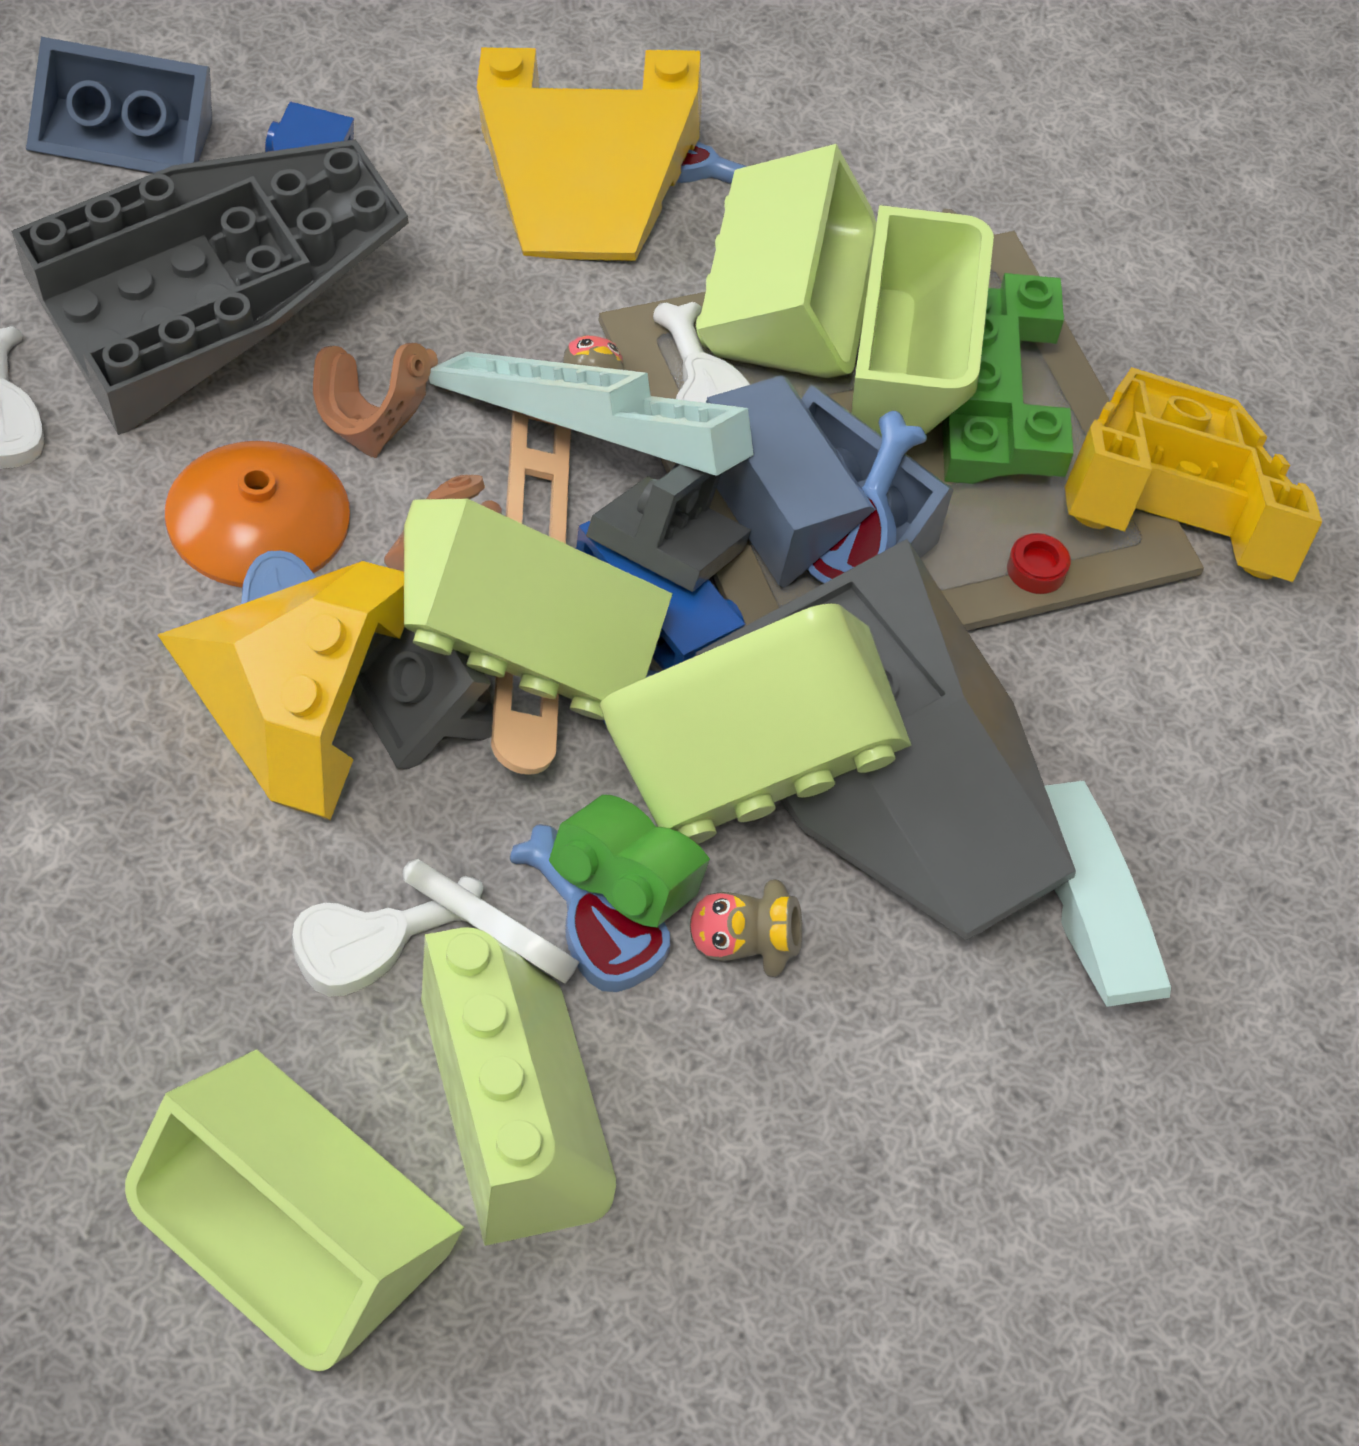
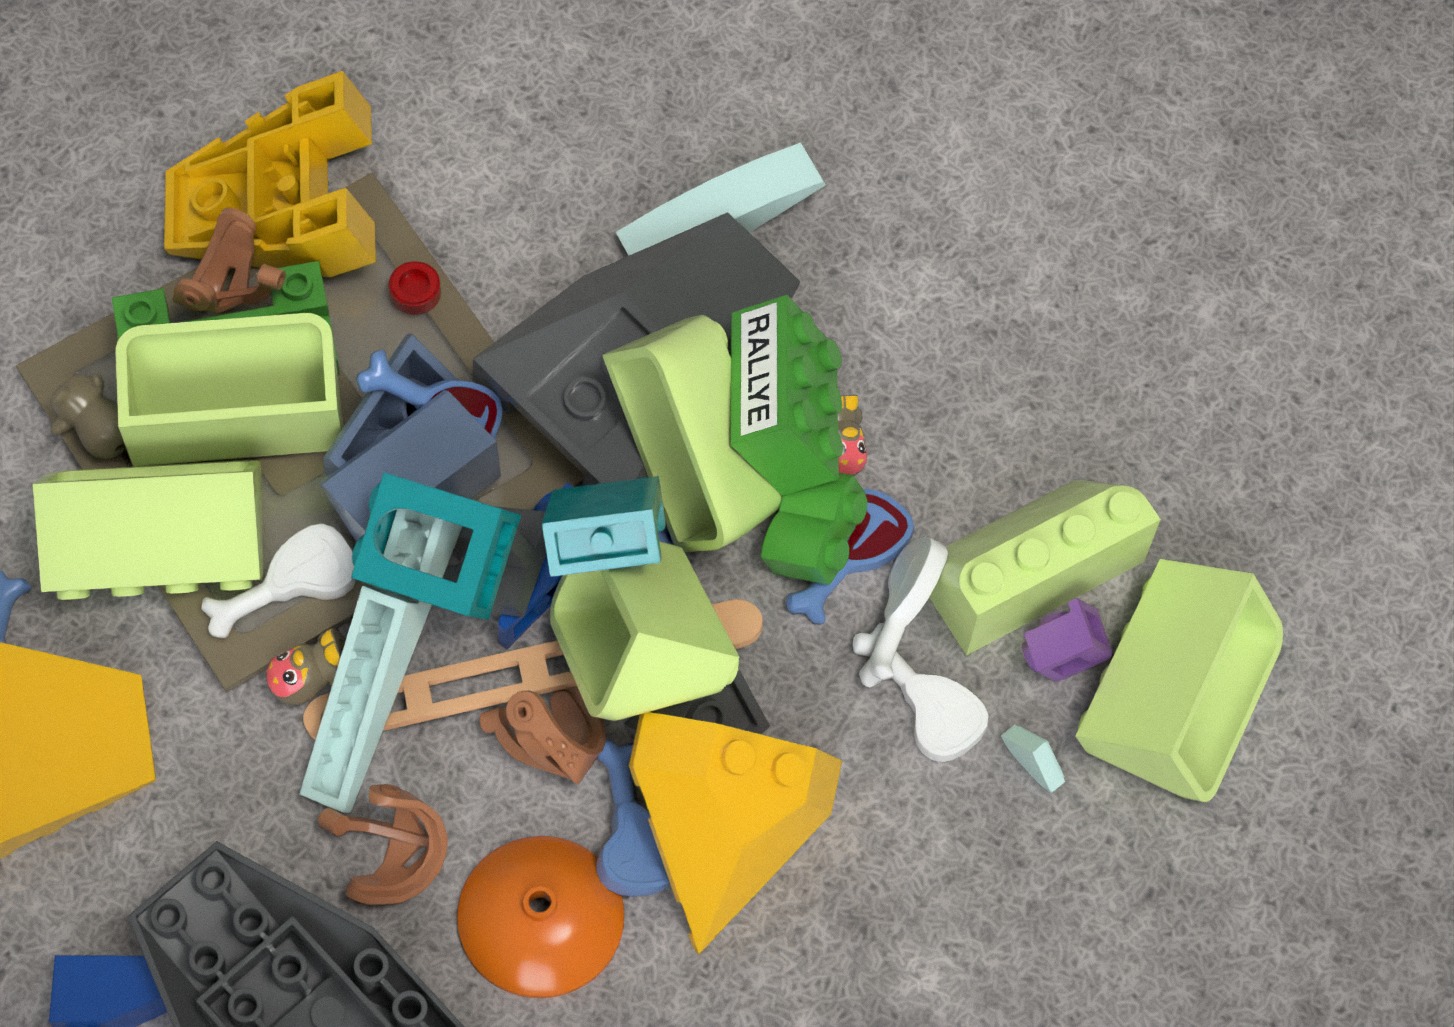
camera: 100 degrees left, 10 degrees up
(254, 1011) = (1035, 756): none -> light aqua tile
(387, 1088) = (1067, 642): none -> medium lavender brick
(649, 450) = (483, 562): none -> teal panel
(657, 567) = (604, 526): none -> panel
(784, 822) = (785, 395): none -> bright green brick
(1061, 377) = (228, 249): none -> nougat helmet

